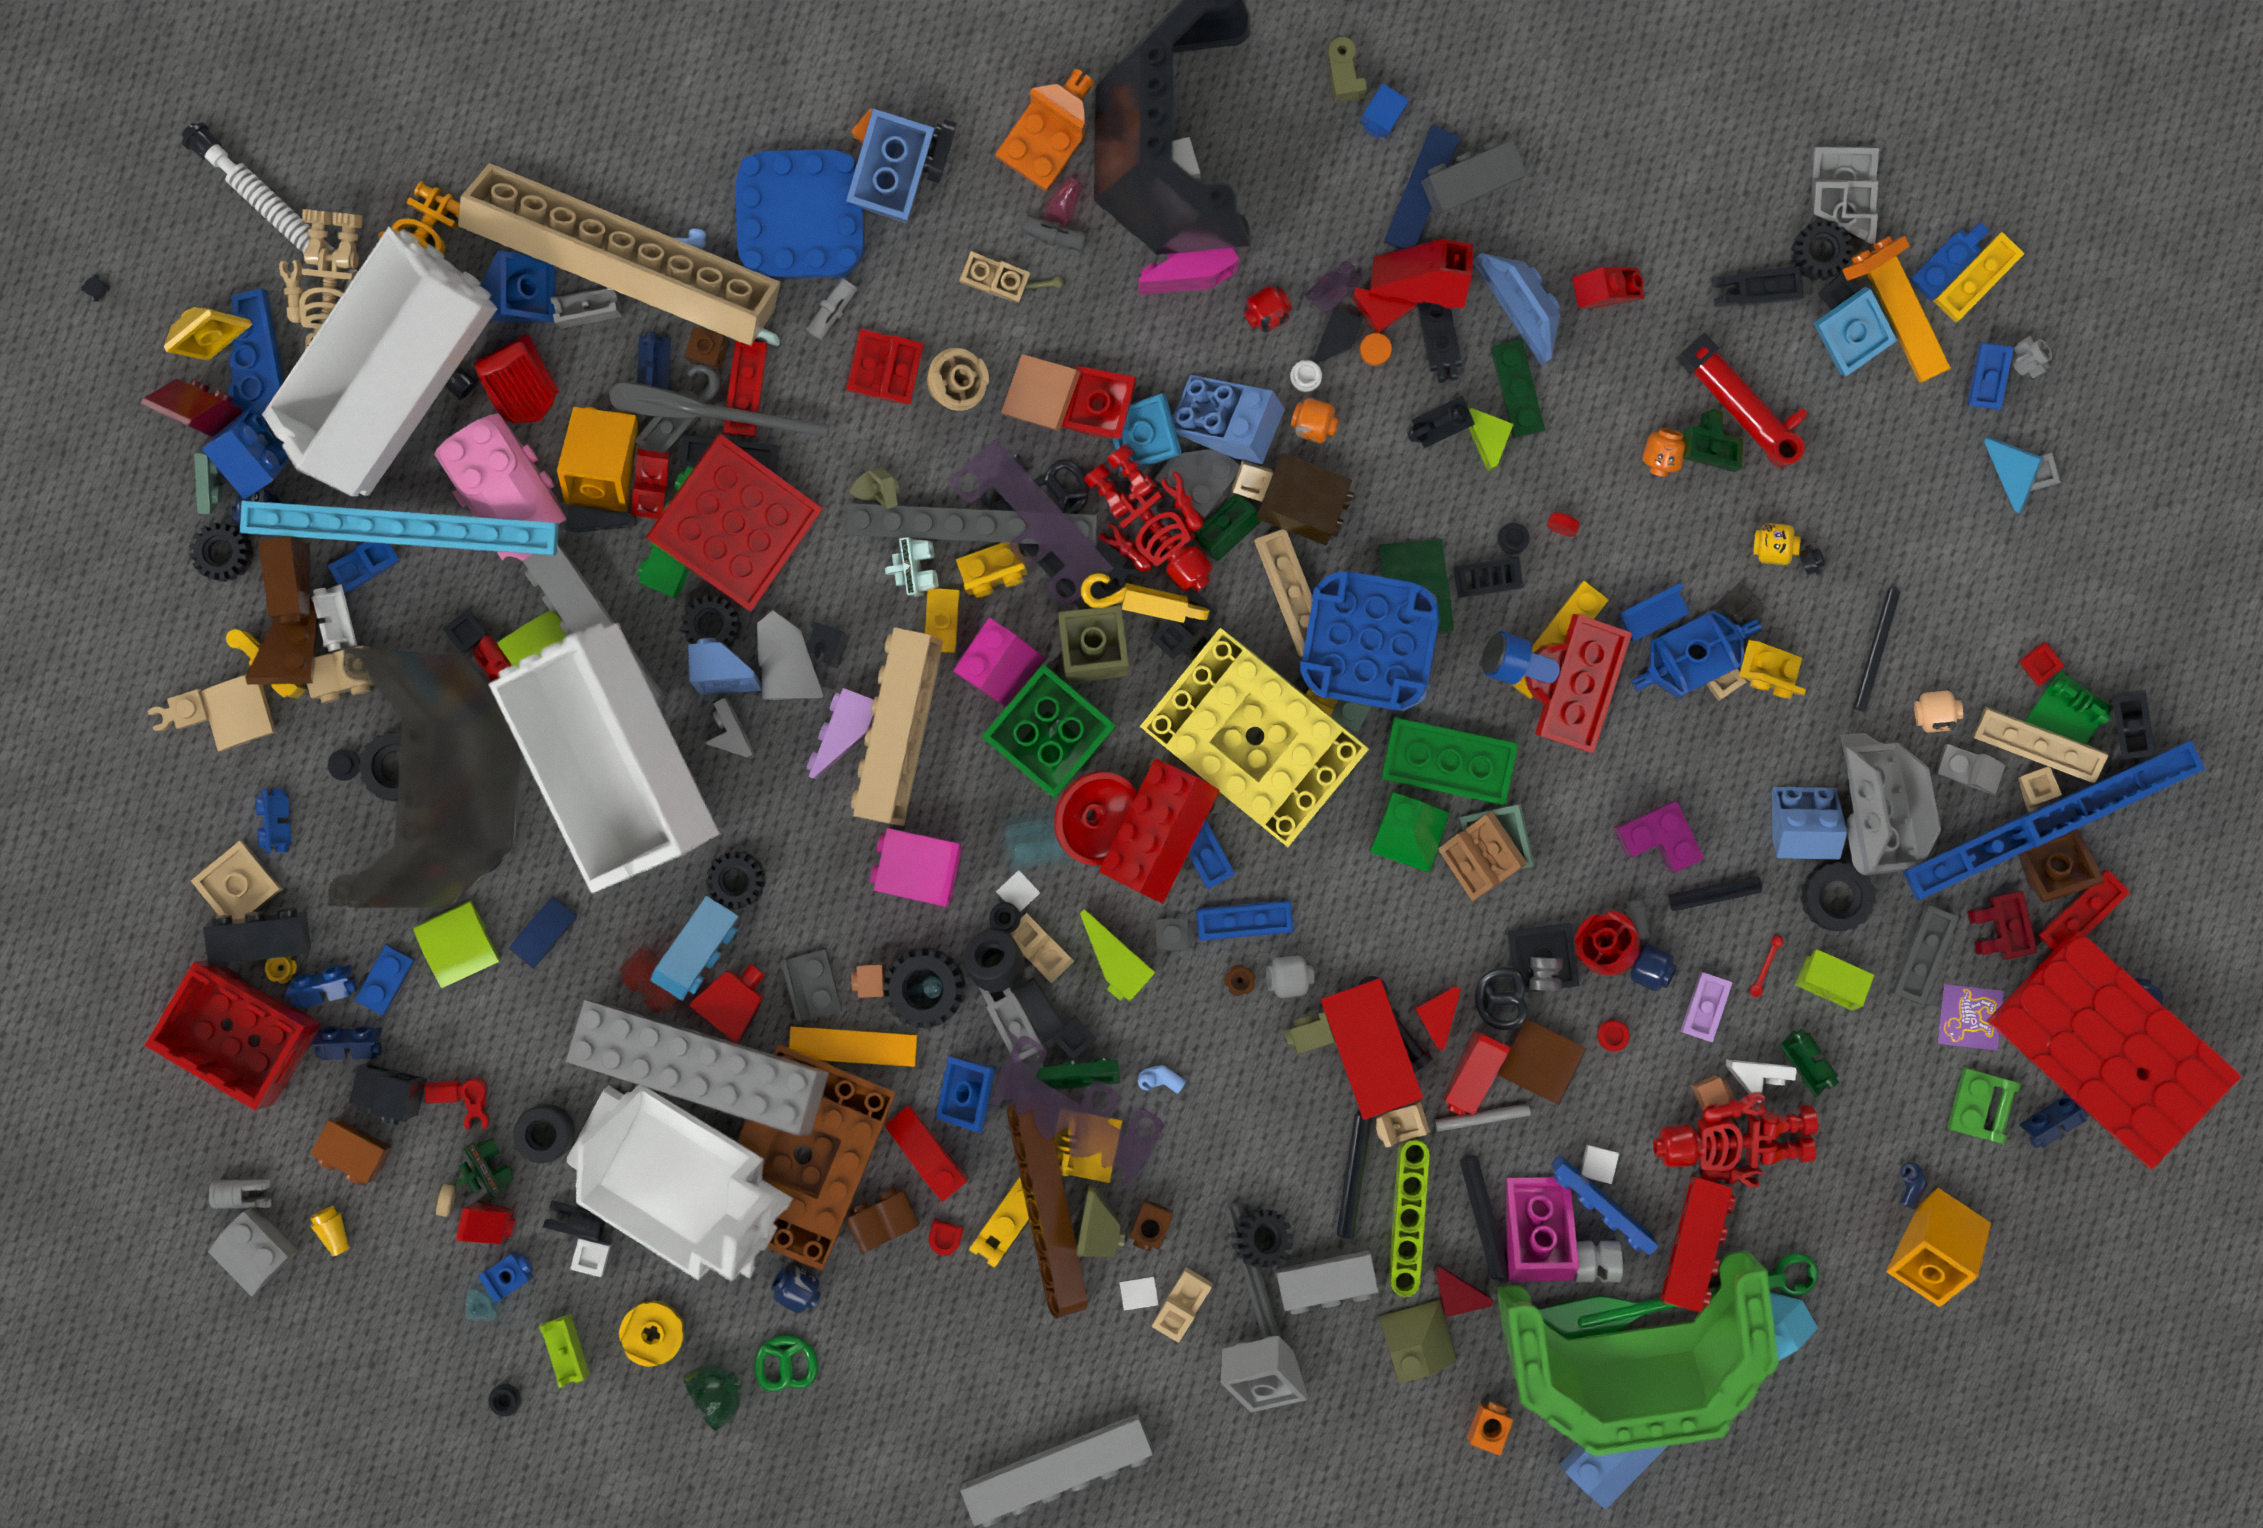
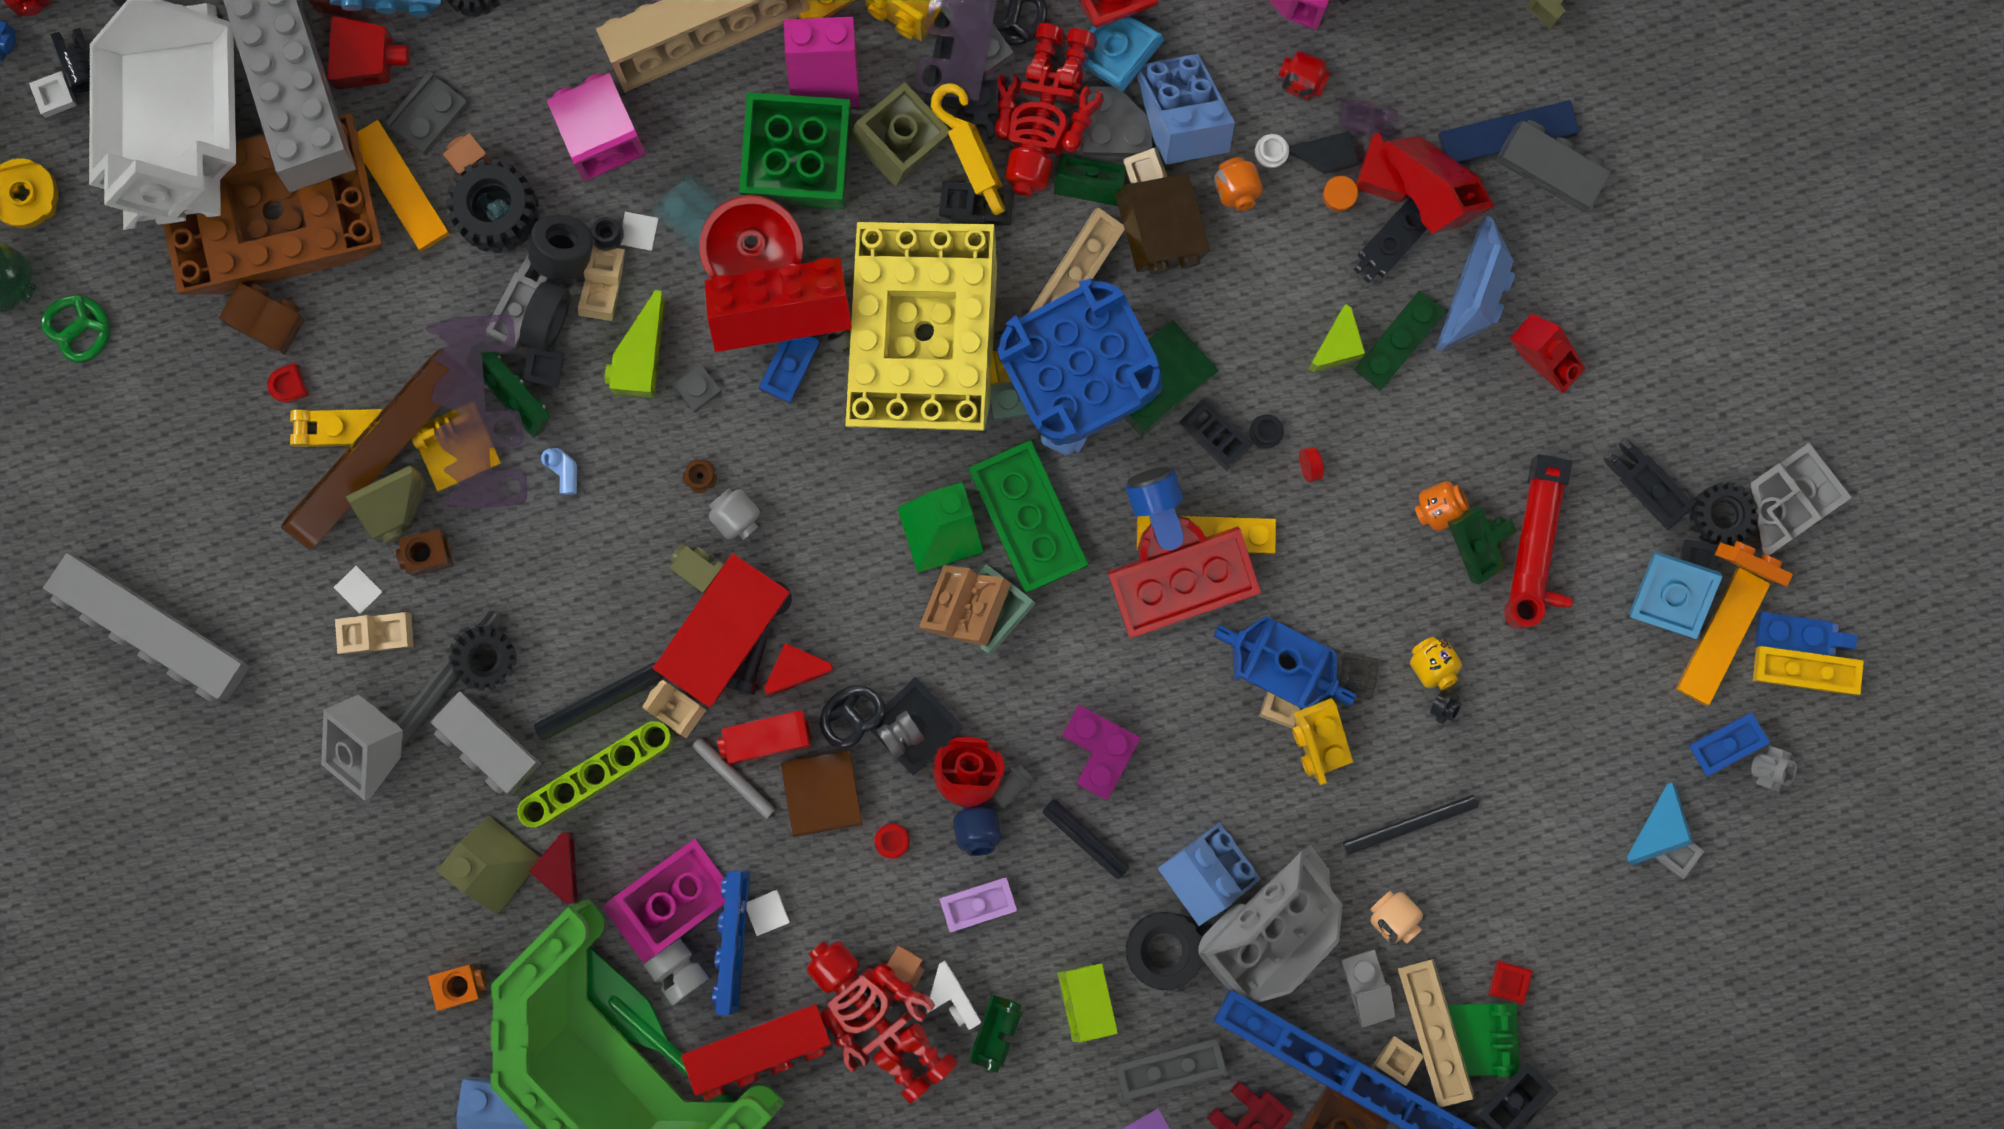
camera: 50 degrees right, 5 degrees down
(796, 1289) = (148, 287): dark blue head -> none
(926, 1153) = (348, 316): red slope -> none
(966, 1093) = (425, 307): blue slope -> none
(1244, 920) = (756, 442): blue tile -> none
(1383, 112) = (1549, 50): blue brick -> none
(1441, 422) = (1318, 292): black hinge -> none
(1484, 1217) = (644, 843): black axle -> none
(1654, 613) = (1294, 601): blue panel -> none
(1756, 989) = (1027, 940): red hinge -> none

